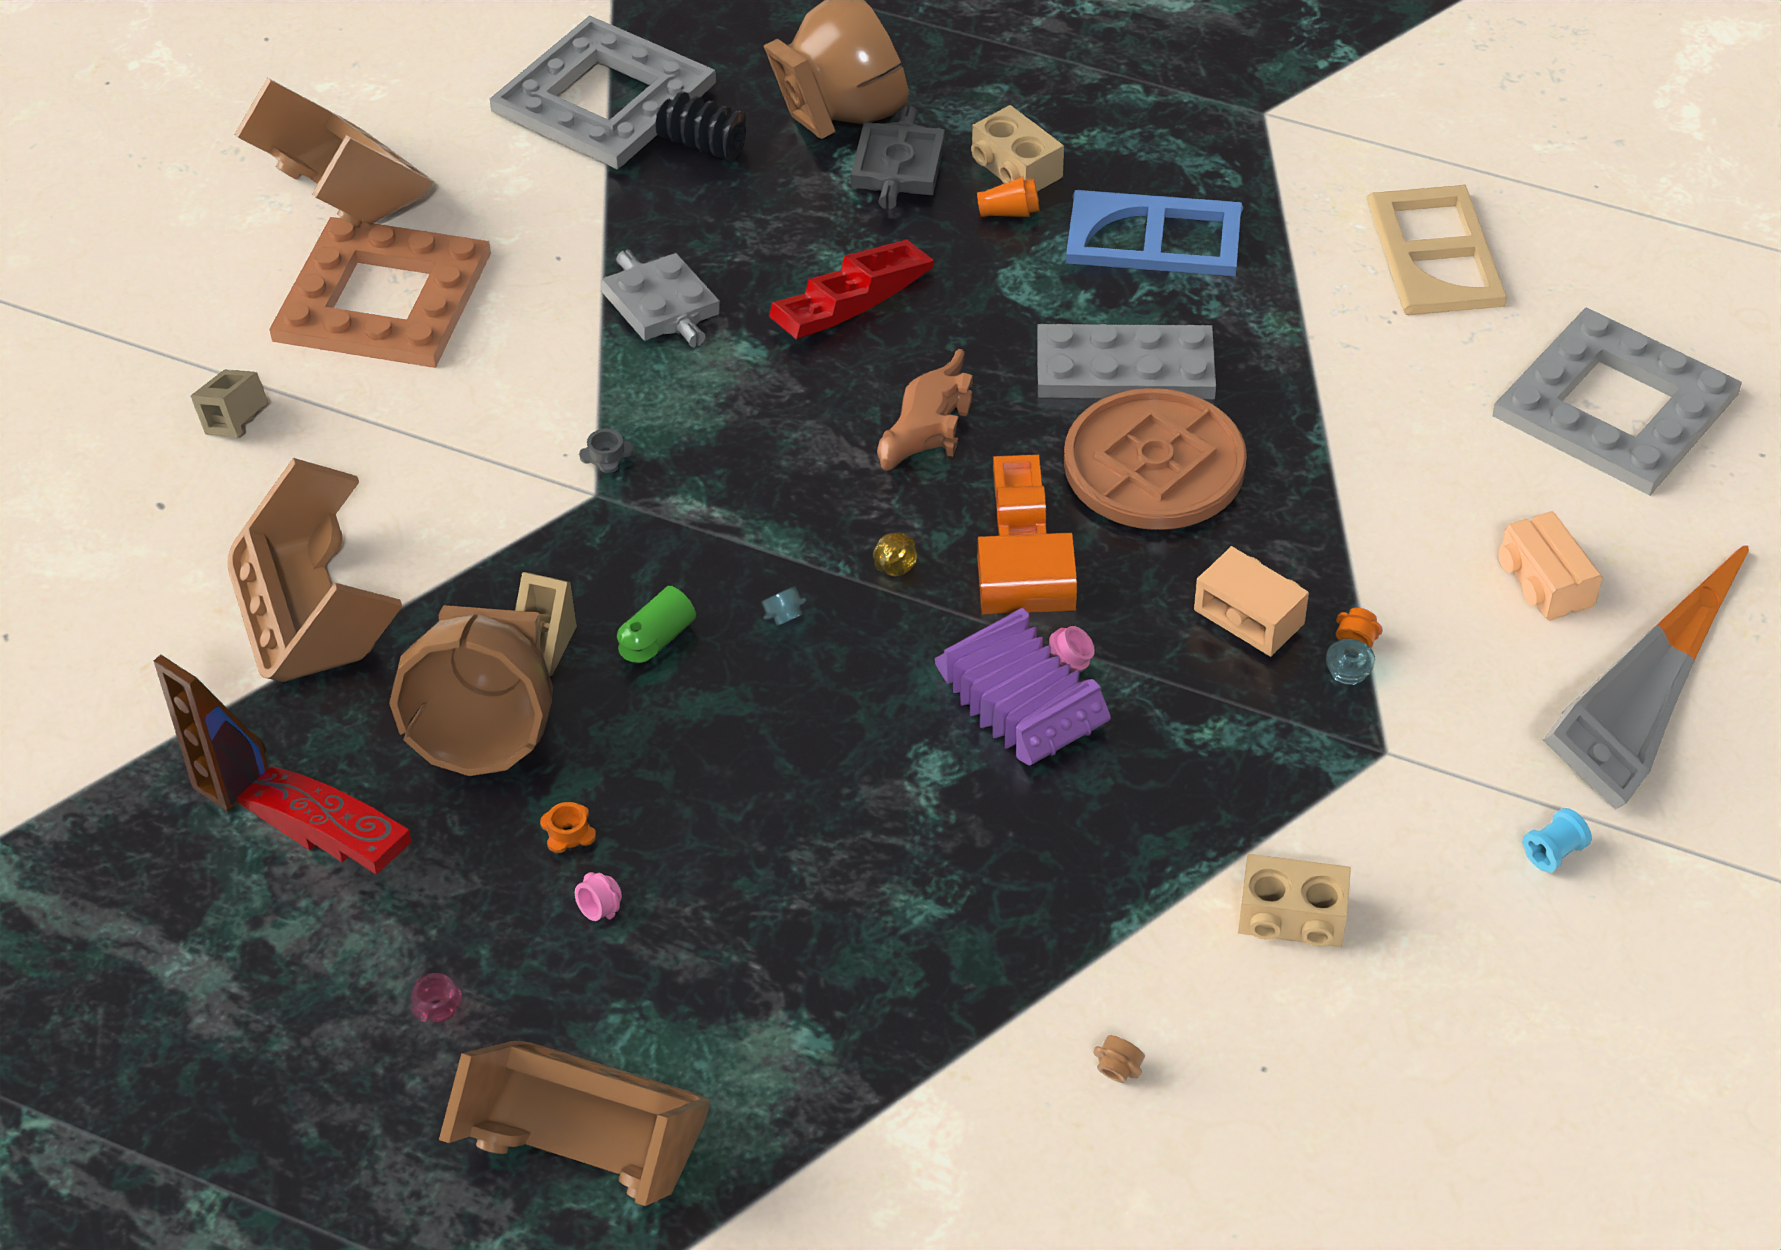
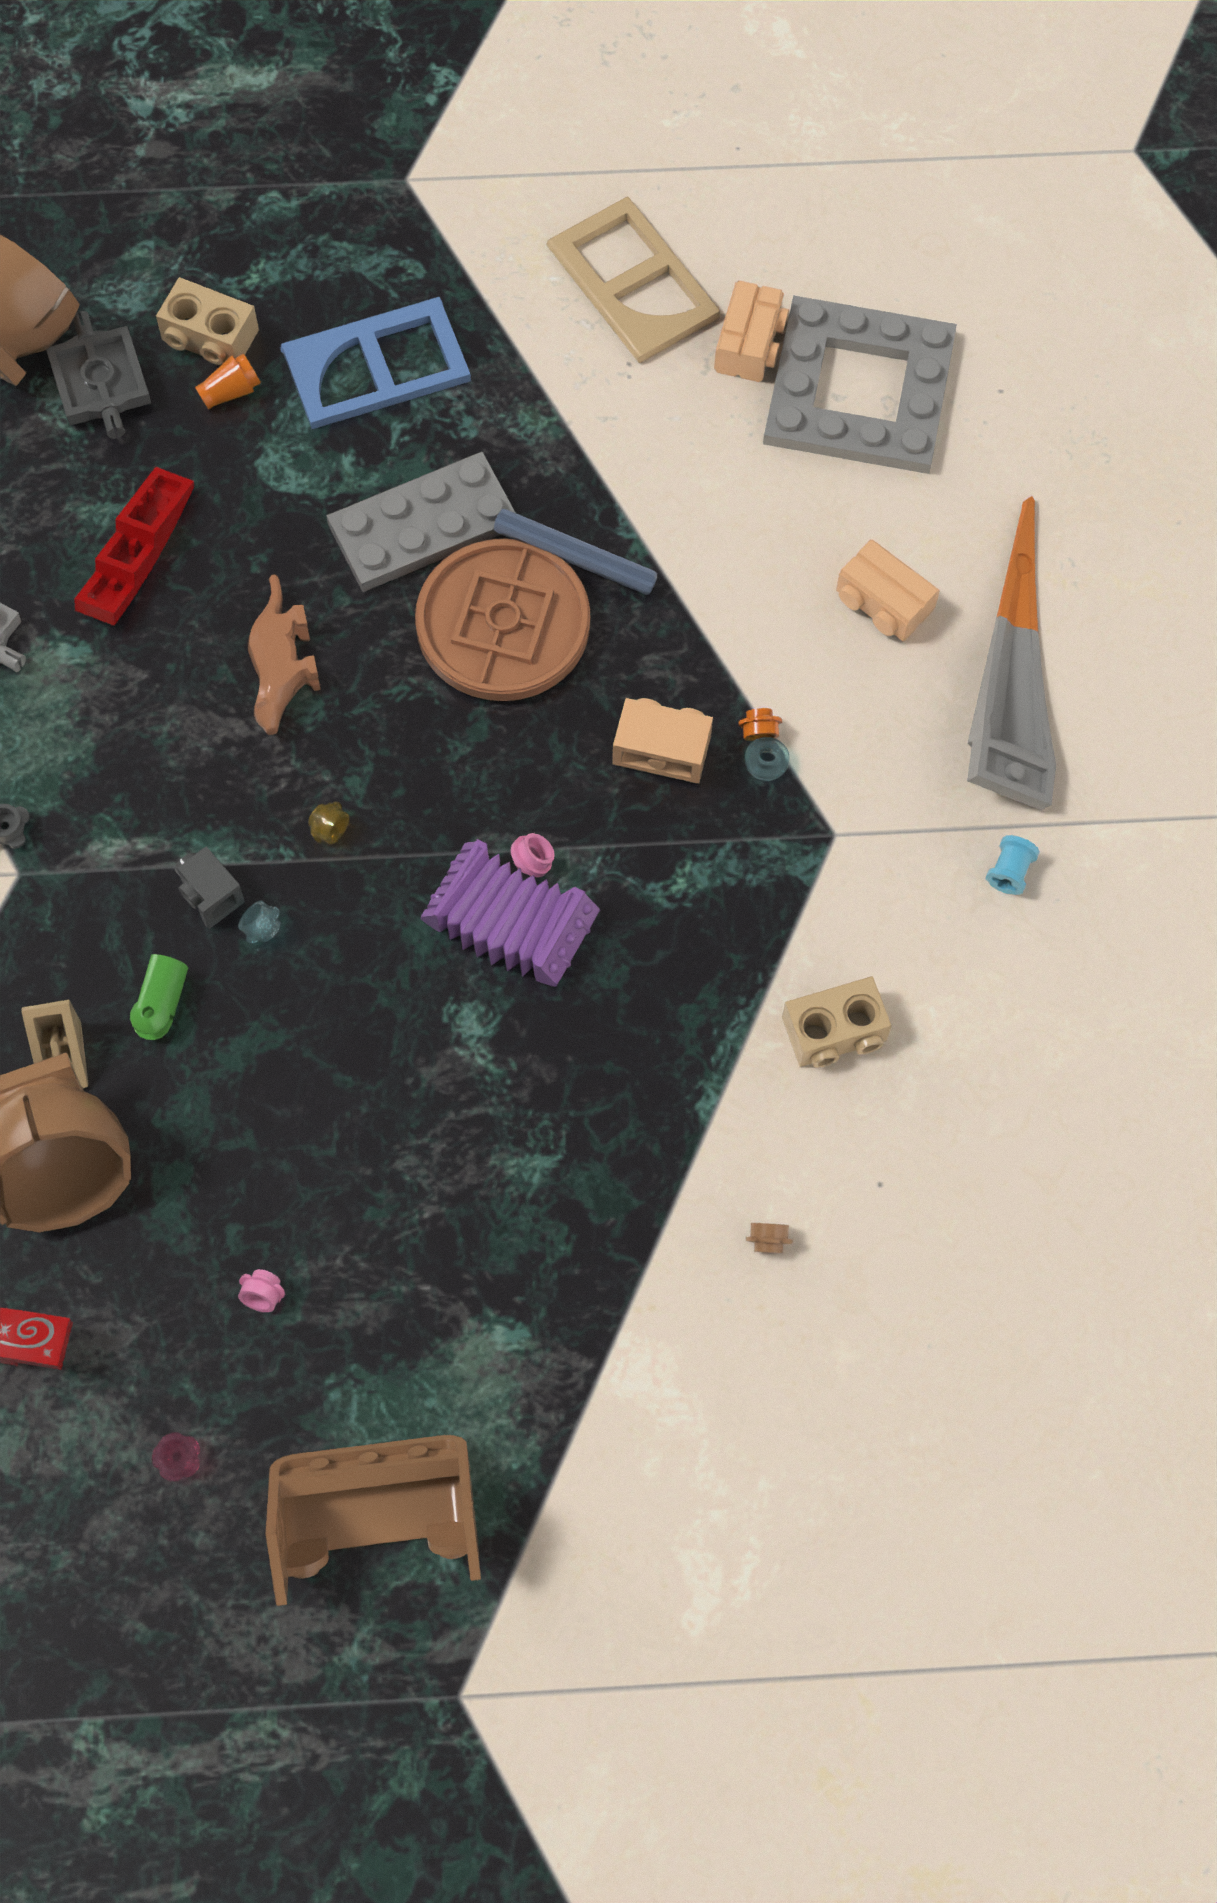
camera: 30 degrees left, 20 degrees up
(566, 816) = (194, 1221): orange plate -> none
(754, 560) = (208, 886): none -> dark grey brick
(1024, 562) = (447, 786): orange plate -> none
(1256, 429) = (576, 551): none -> sand blue axle
(1525, 319) = (749, 331): none -> light nougat brick

